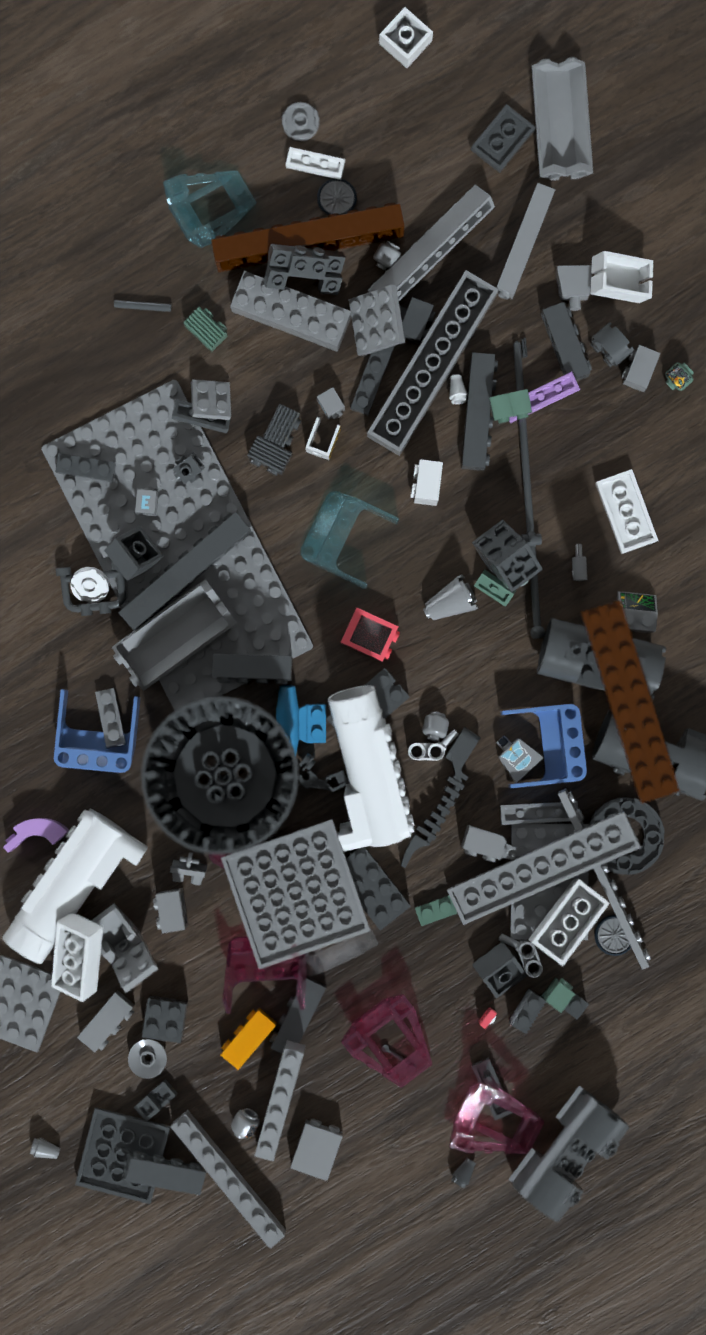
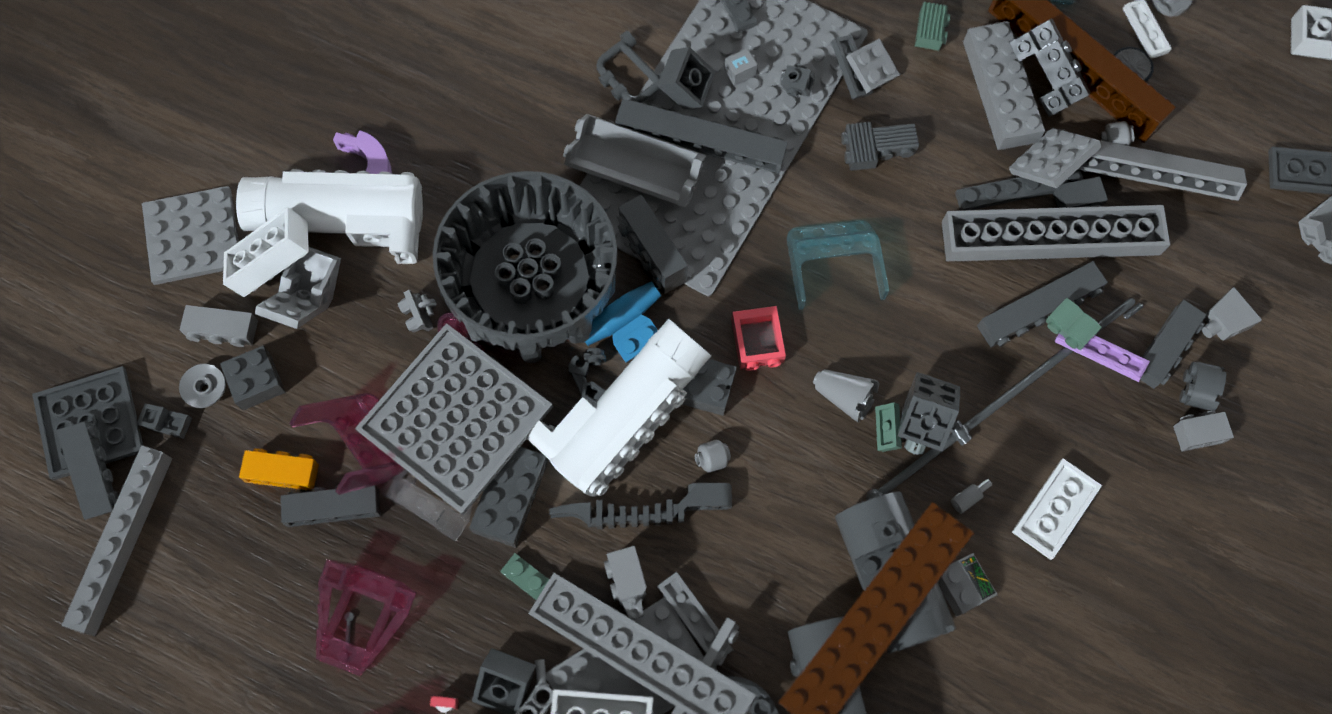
camera: 55 degrees right, 15 degrees down
(44, 1149) = (54, 344): light grey cone -> none
(88, 748) = (475, 148): medium blue windscreen -> none
(90, 584) = (631, 65): white tile -> none
(110, 718) = (520, 154): light grey plate -> none
(171, 910) = (366, 315): light grey brick -> none
(245, 1123) = (187, 521): light grey head -> none
(280, 1100) = (229, 537): light grey brick -> none
(317, 1149) = (199, 611): light grey brick -> none
(326, 455) = (913, 192): white piece -> none
(331, 404) = (947, 169): light grey brick -> none
(426, 747) = (685, 461): white beam -> none
(428, 482) = (942, 296): white brick -> none
(457, 390) = (1046, 273): white cone -> none
(517, 757) = (736, 558): light grey torso -> none
(524, 241) = (1230, 247): light grey brick -> none
(560, 743) = (781, 591): medium blue windscreen -> none
(619, 277) = (1274, 351): white piece -> none
(679, 376) = (1225, 473): head -> none

